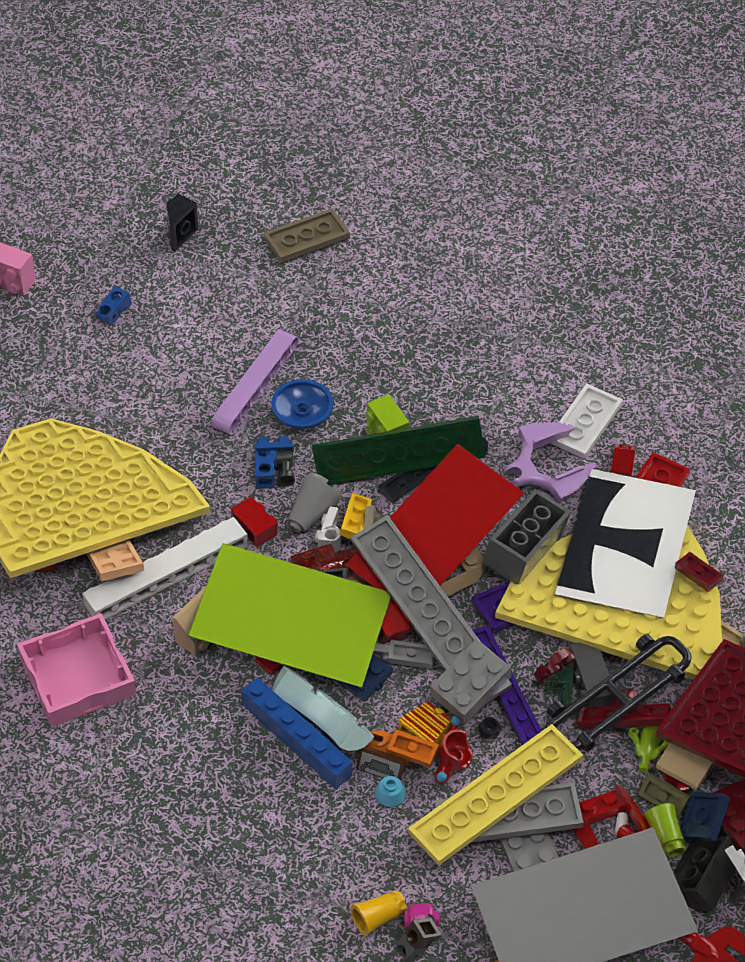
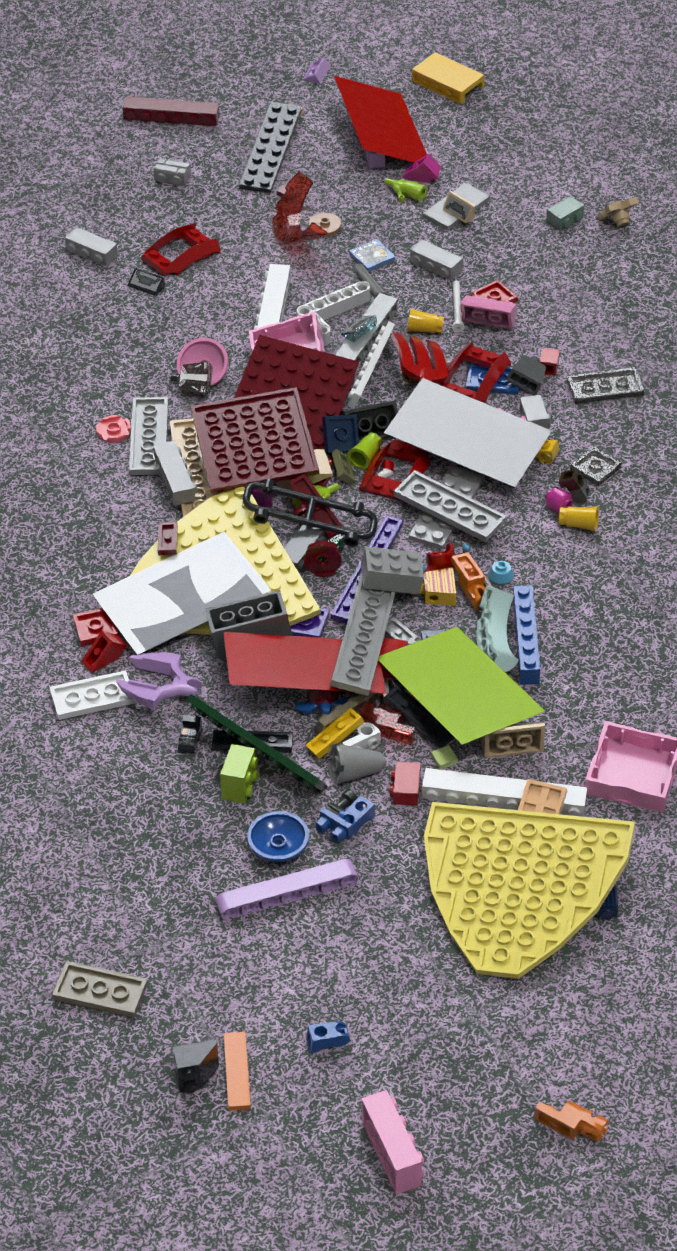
camera: 135 degrees left, 5 degrees down
(155, 252) = (237, 1071): none -> tile
(495, 794) = (449, 508): light yellow plate -> none

